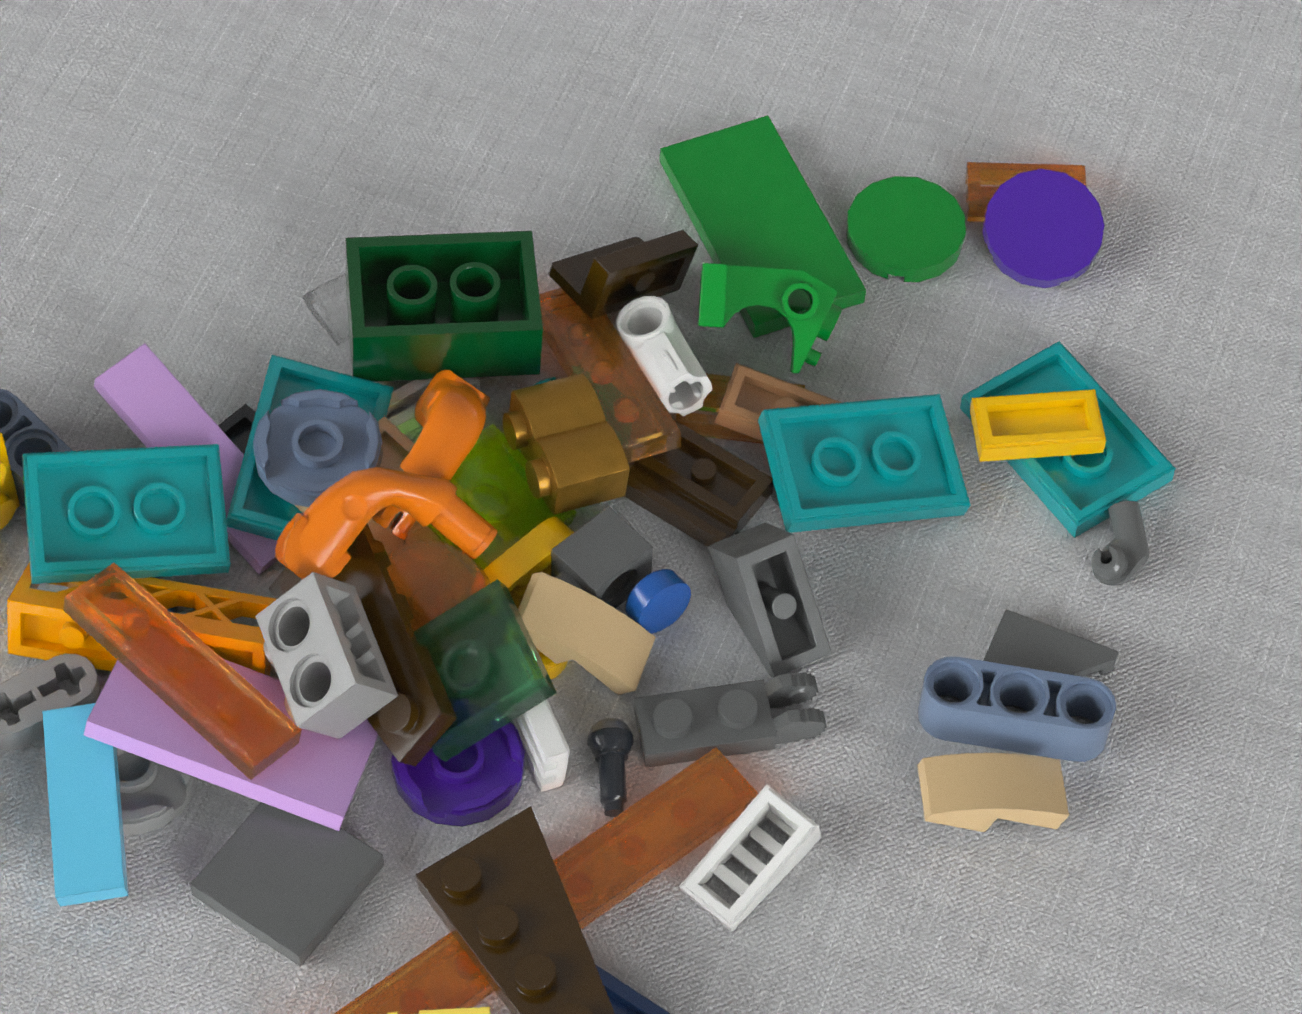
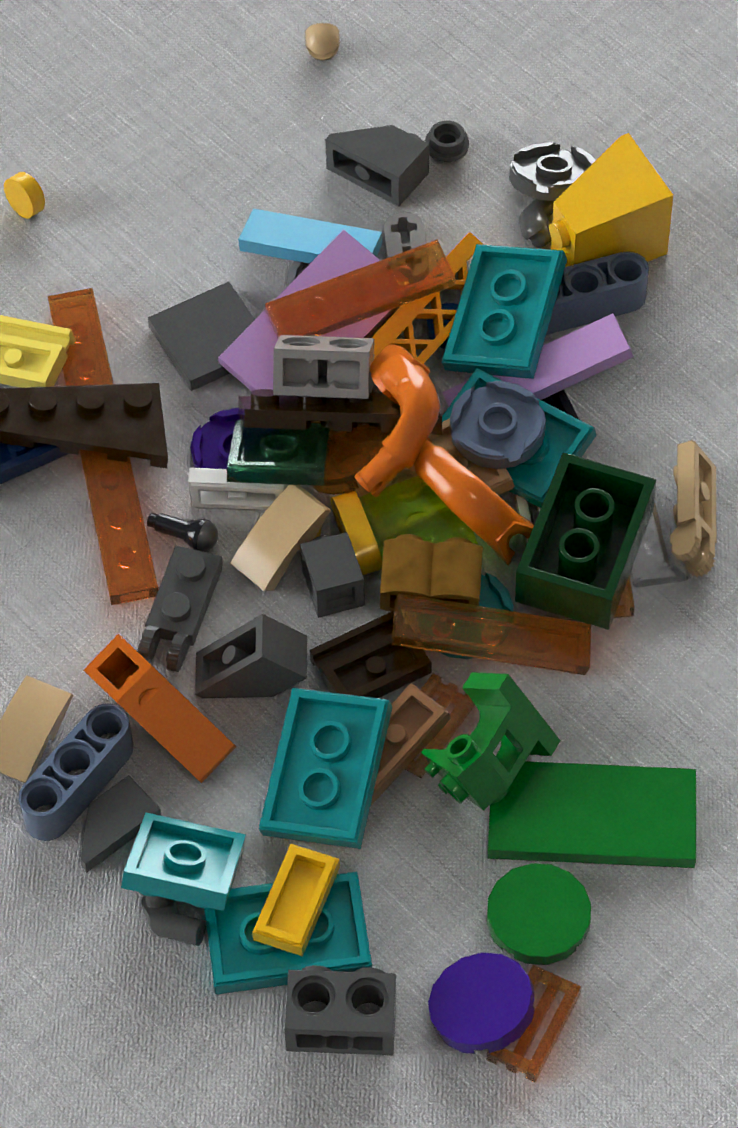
camera: 120 degrees right, 0 degrees up
(324, 249) = (695, 509): none -> tan hinge
(624, 271) = (581, 684): dark brown panel -> none
(658, 600) = (287, 597): blue tile -> none
(663, 354) = (454, 665): white piece -> none
(765, 806) = (84, 595): white slope -> none
(885, 665) = (159, 708): none -> orange slope
(1066, 539) = (183, 861): none -> teal plate
(1132, 340) = (339, 1025): none -> dark grey brick

